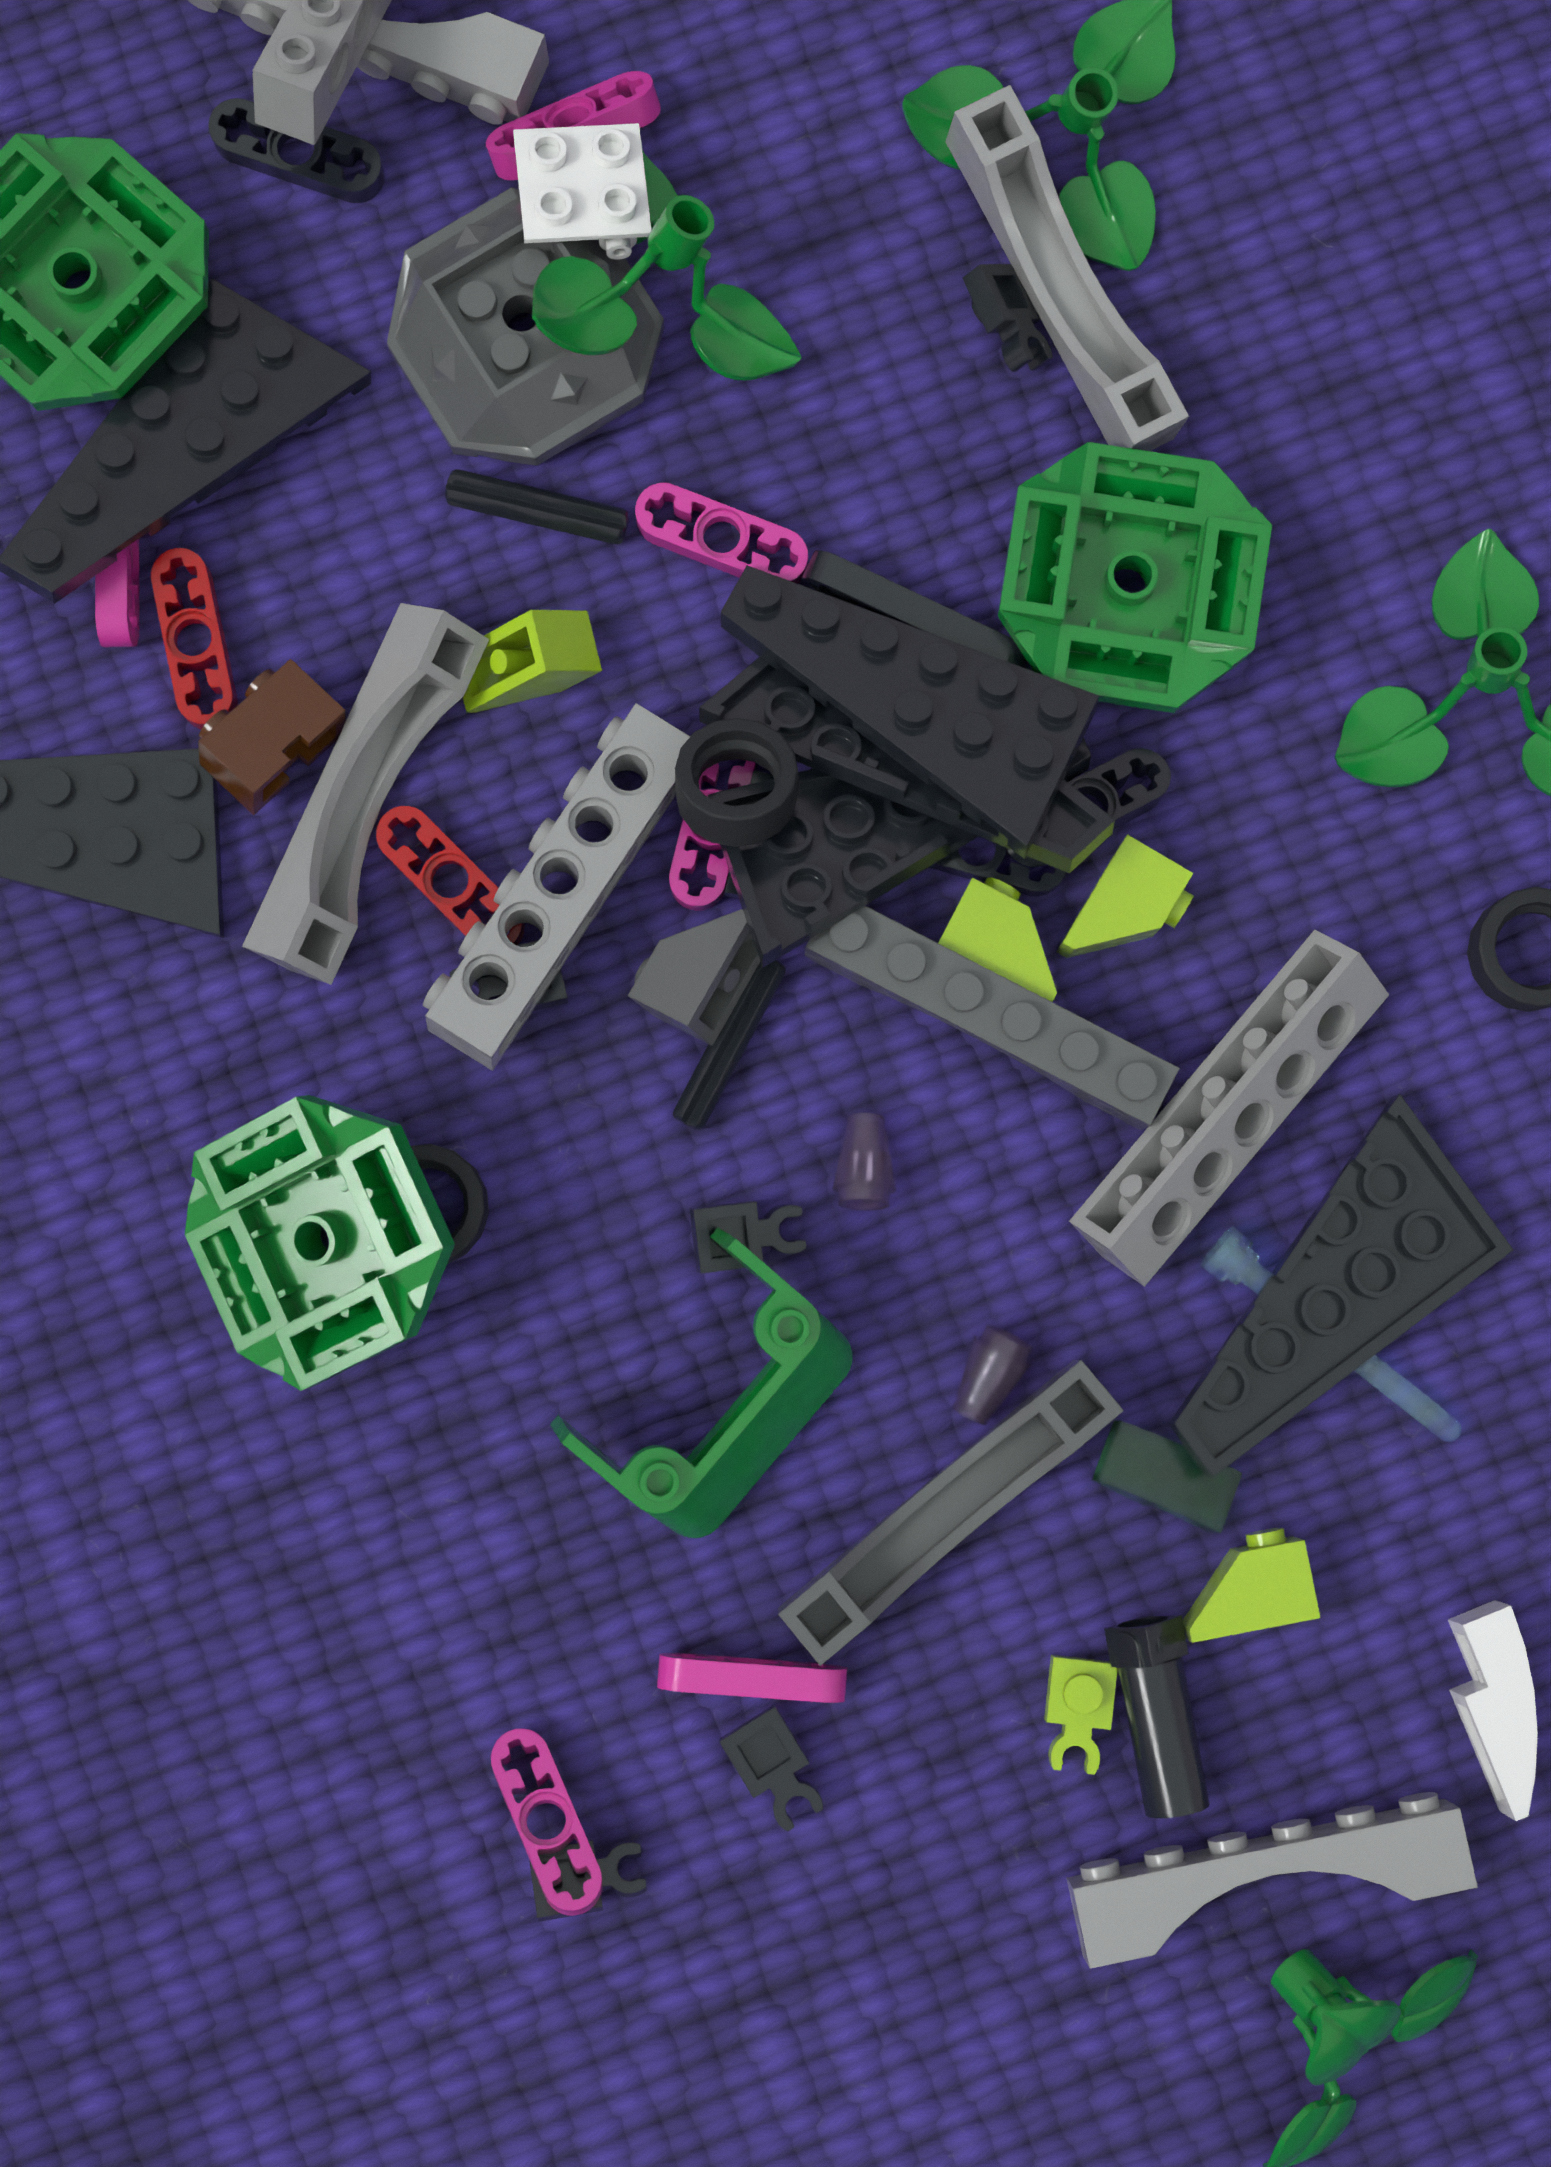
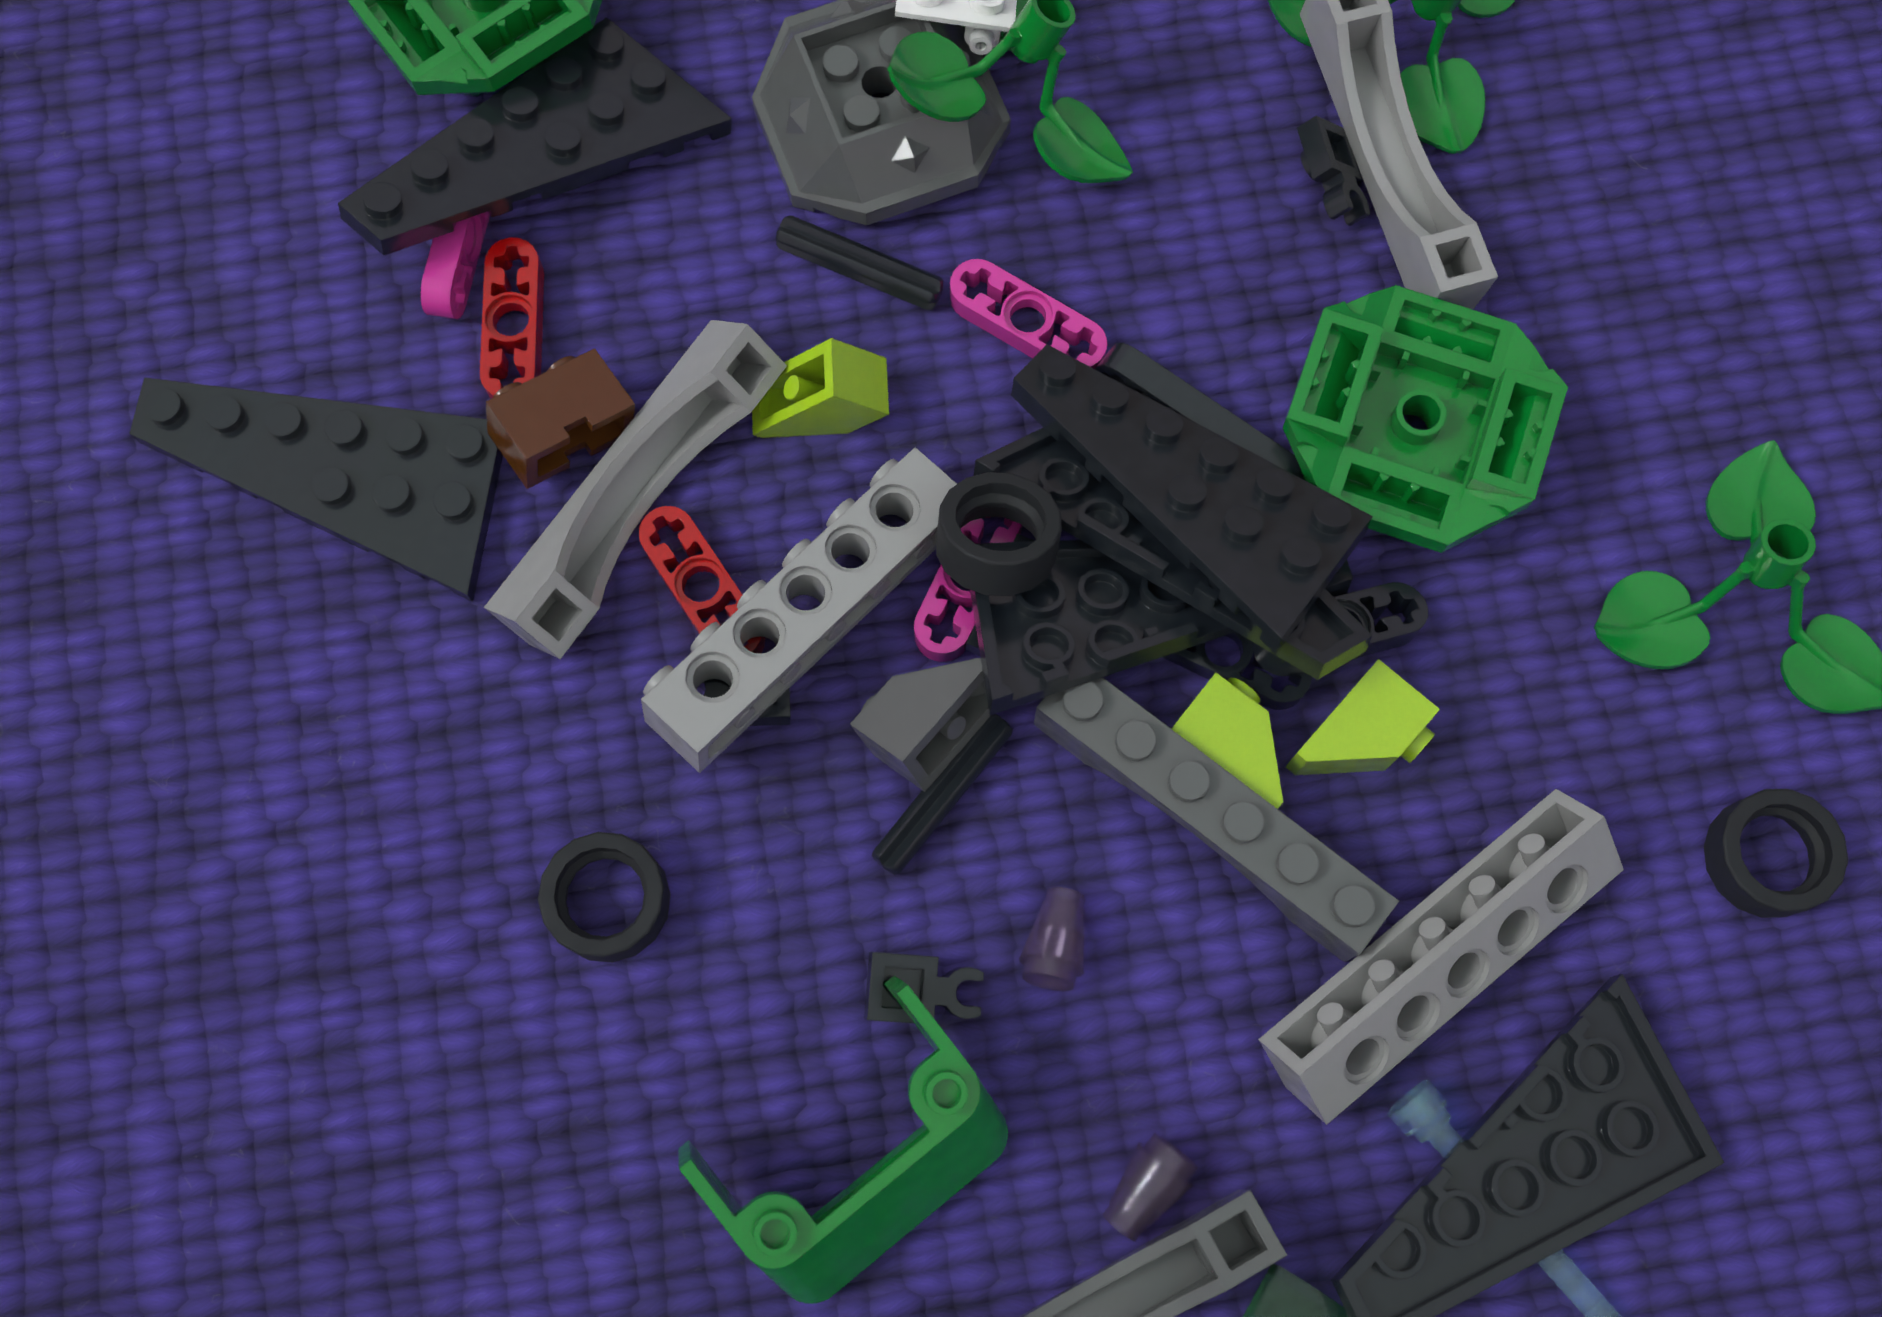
camera: 15 degrees right, 10 degrees down
(261, 1247) = (481, 903): green piece -> none

